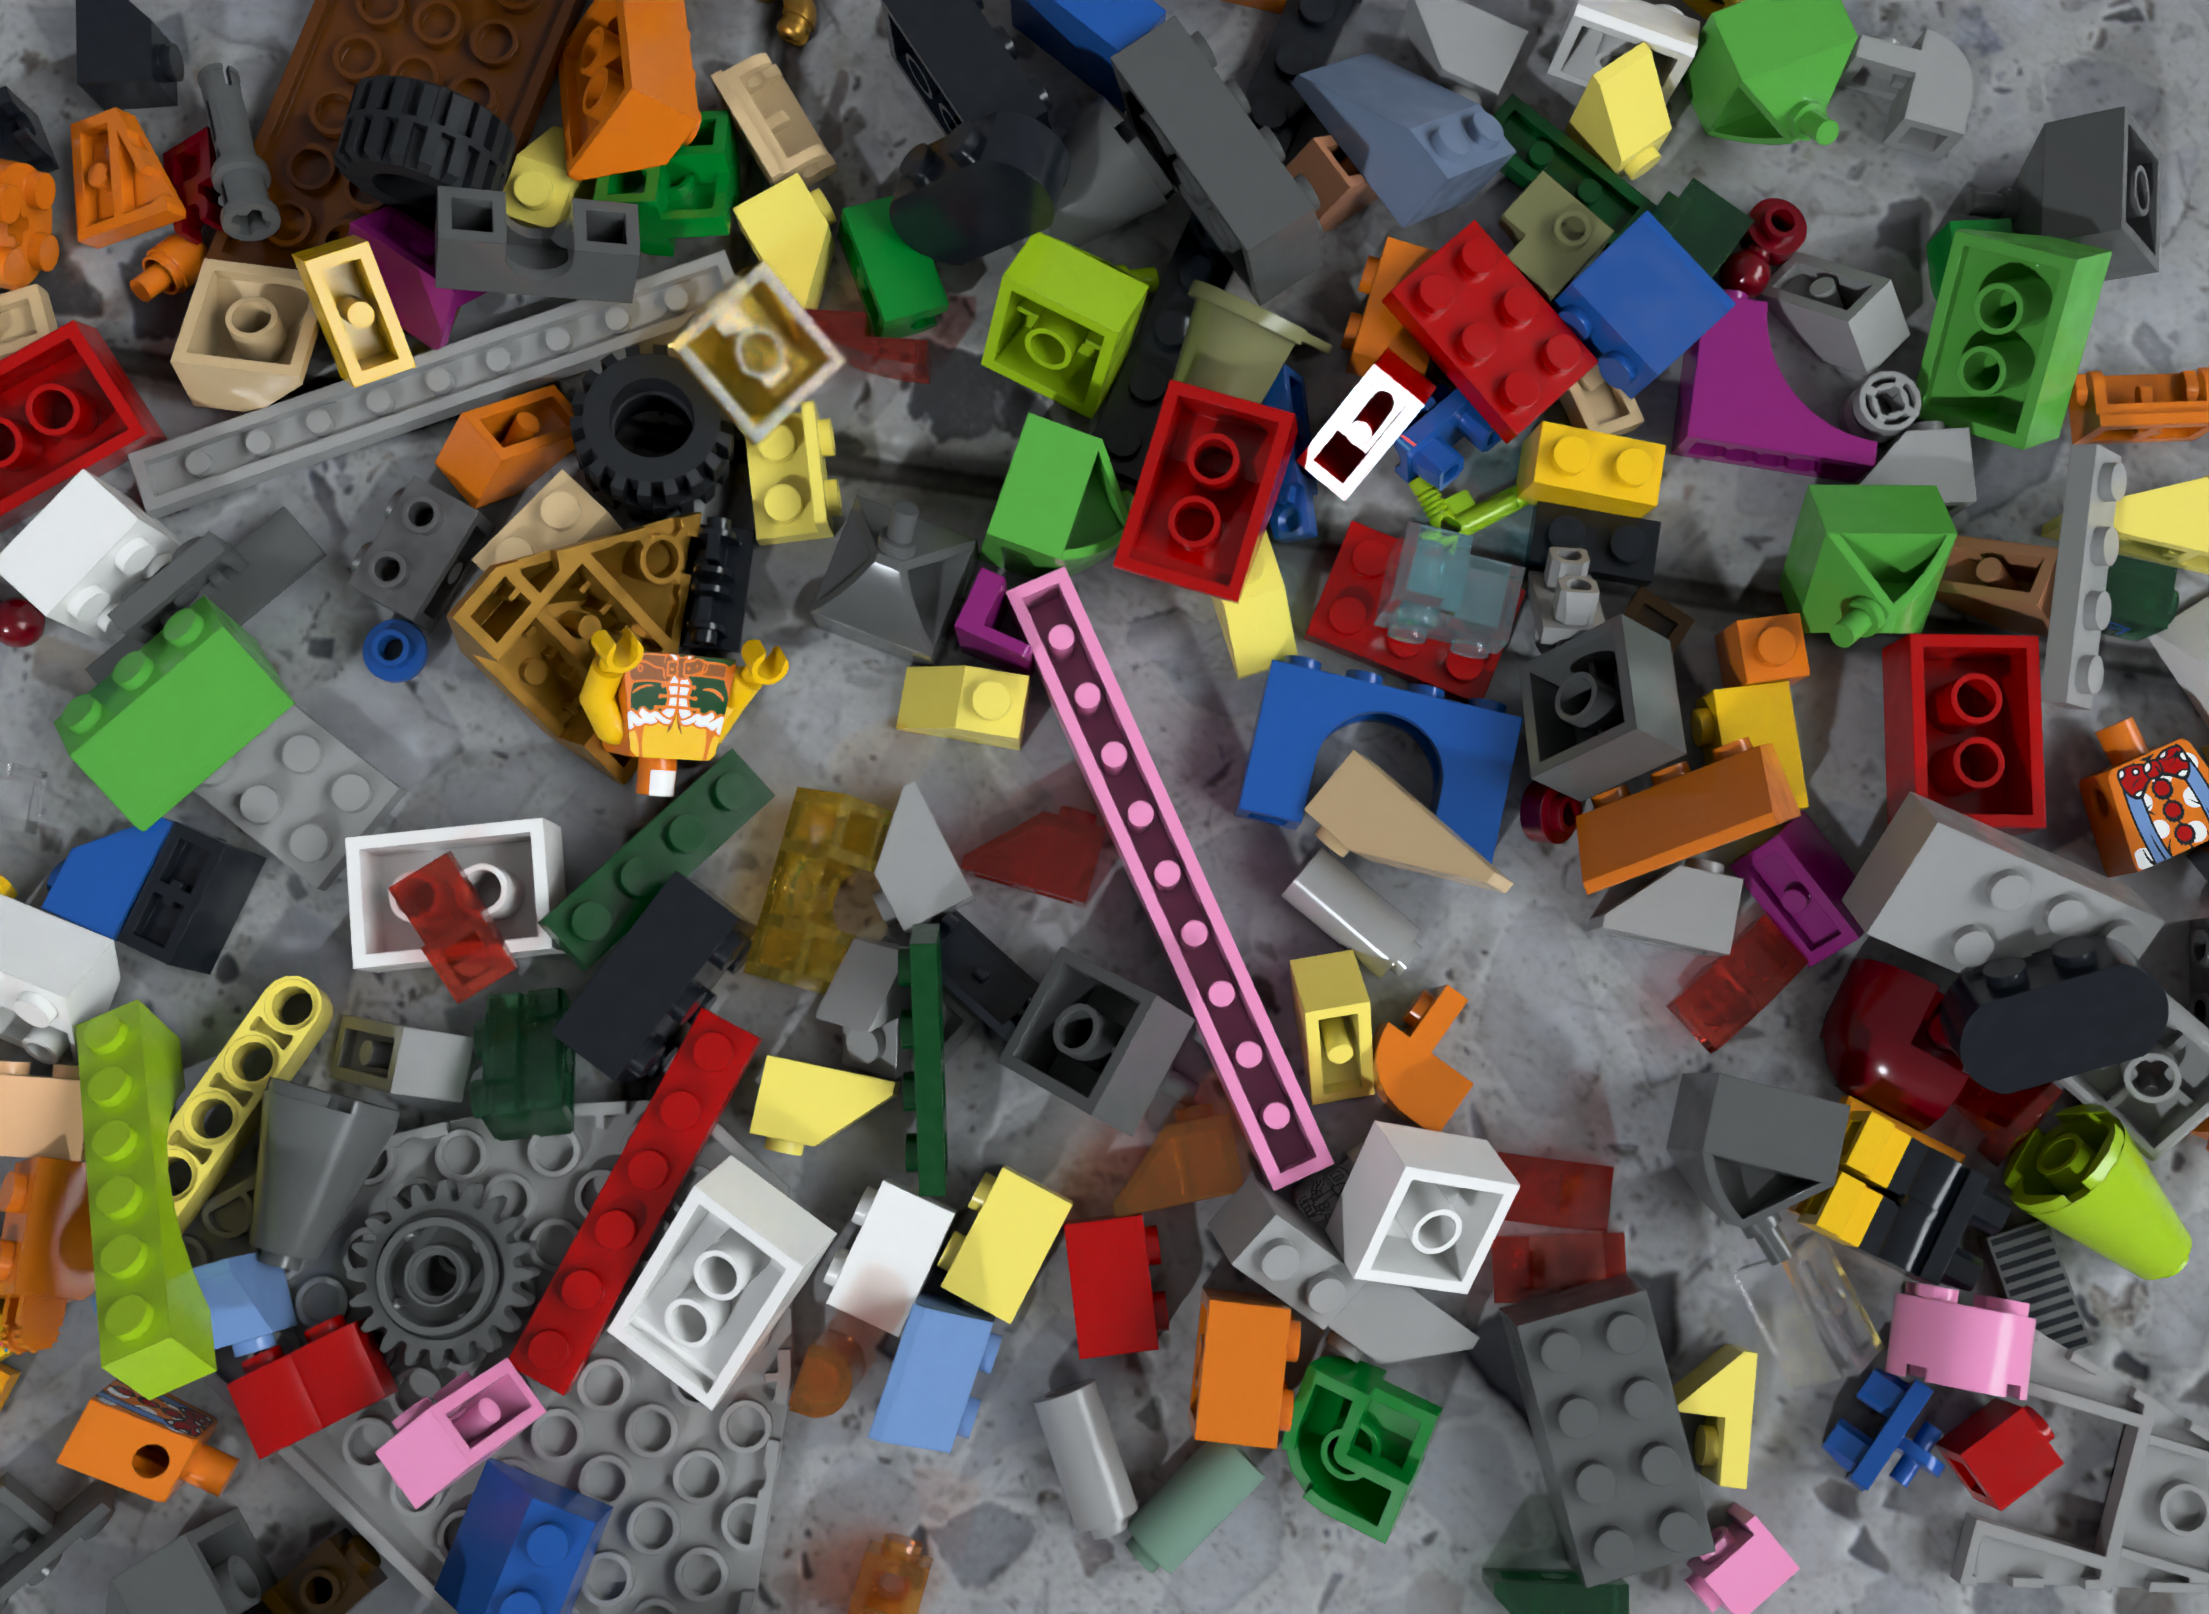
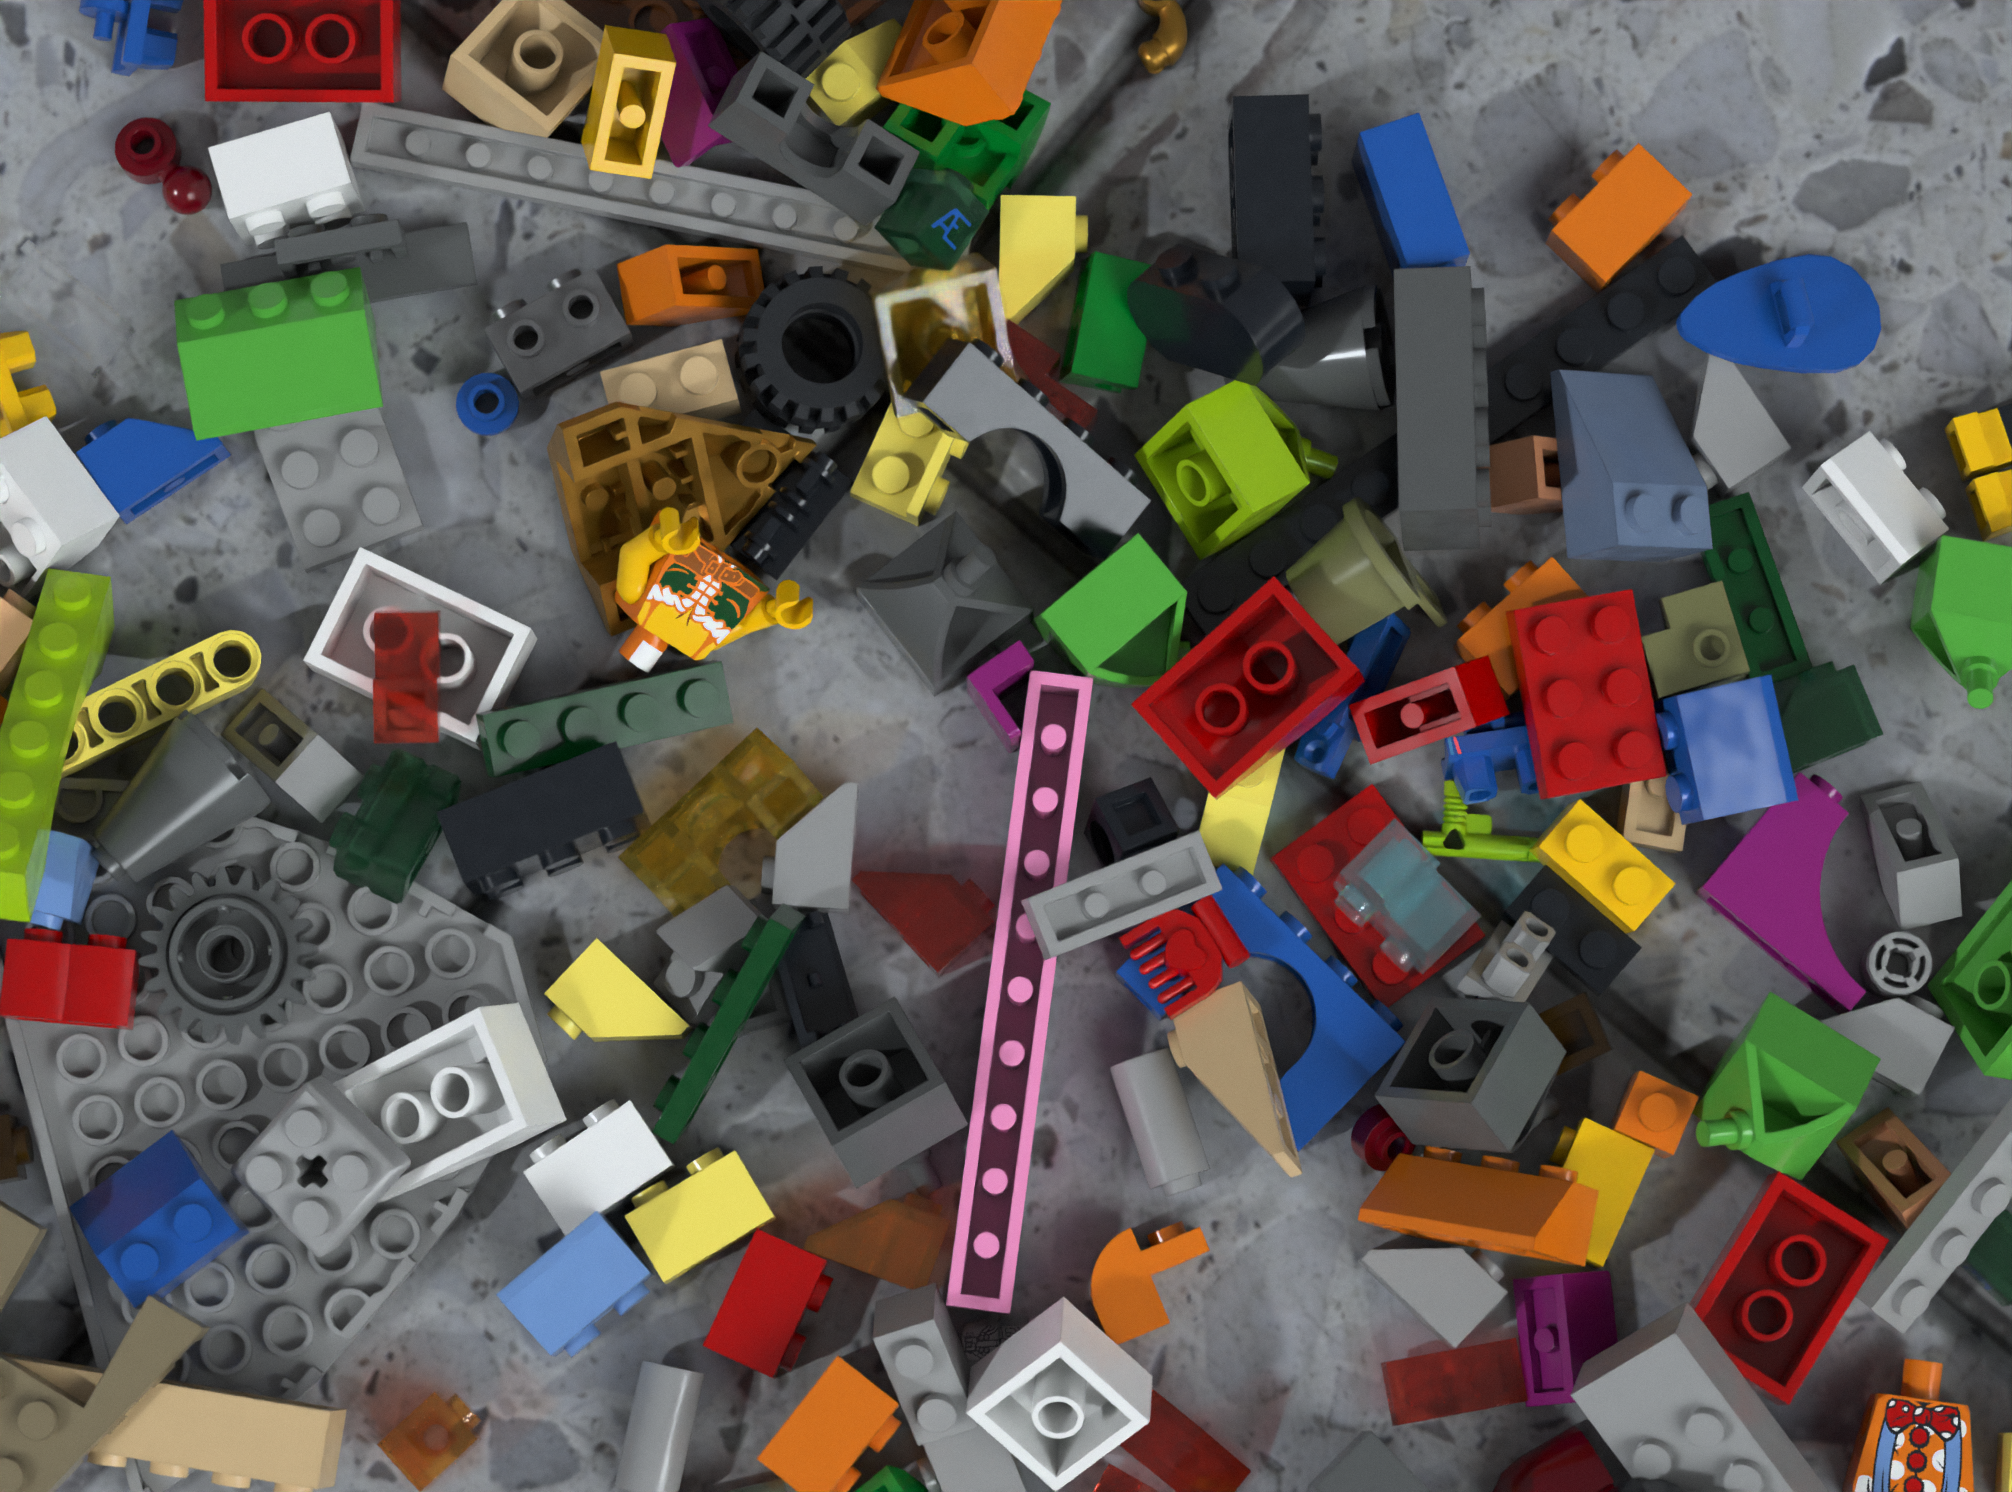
camera: 35 degrees right, 0 degrees up
(191, 899) = (197, 516): black hinge -> none
(459, 1431) = (173, 1088): bright pink brick -> none
(634, 1202) = (418, 990): red plate -> none
(676, 1400) = (357, 1171): none -> light grey brick
(683, 255) = (933, 218): none -> clear green brick
(772, 122) = (1084, 133): tan hinge -> none
(828, 1375) = (490, 1231): clear orange brick -> none
(961, 419) = (1083, 494): none -> arch
(965, 704) = (941, 742): light yellow slope -> none
(1176, 679) = (1129, 822): none -> black brick
(1205, 738) = (1121, 895): none -> light grey plate
(1295, 749) = (1192, 951): none -> red piece
(1333, 1026) = (1084, 1205): light yellow slope -> none
(1623, 115) = (1827, 575): light yellow slope -> none
(1764, 246) = (1859, 774): dark red plate -> none

